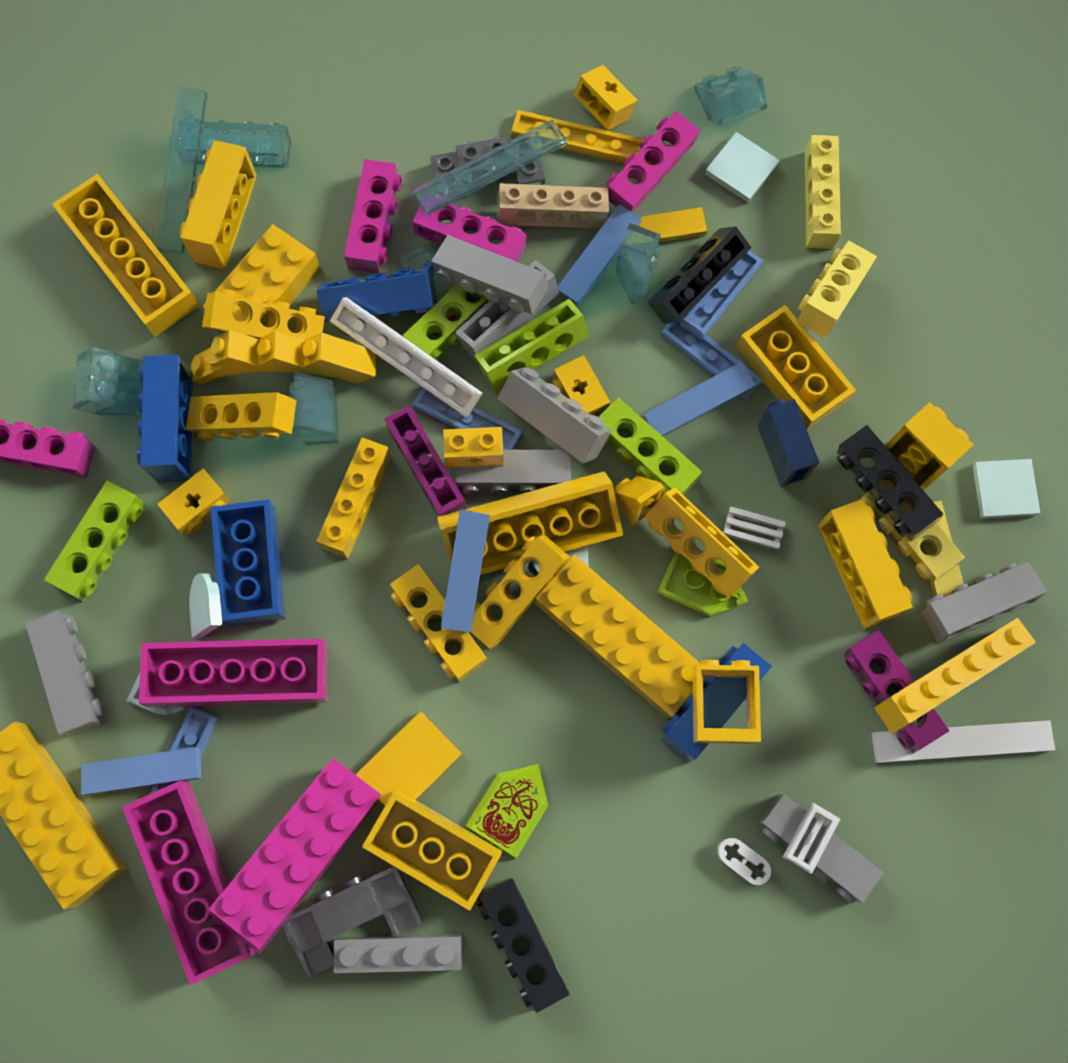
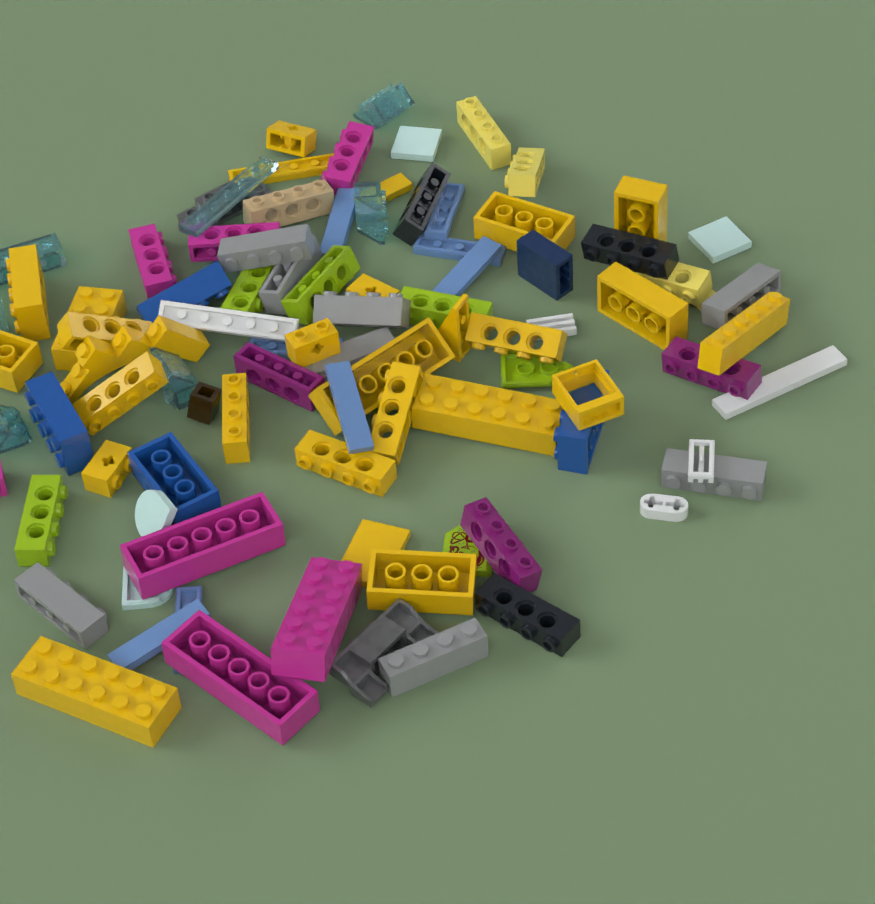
camera: 20 degrees left, 30 degrees down
(329, 463) = (204, 403): none -> dark brown brick
(538, 843) = (500, 545): none -> magenta brick

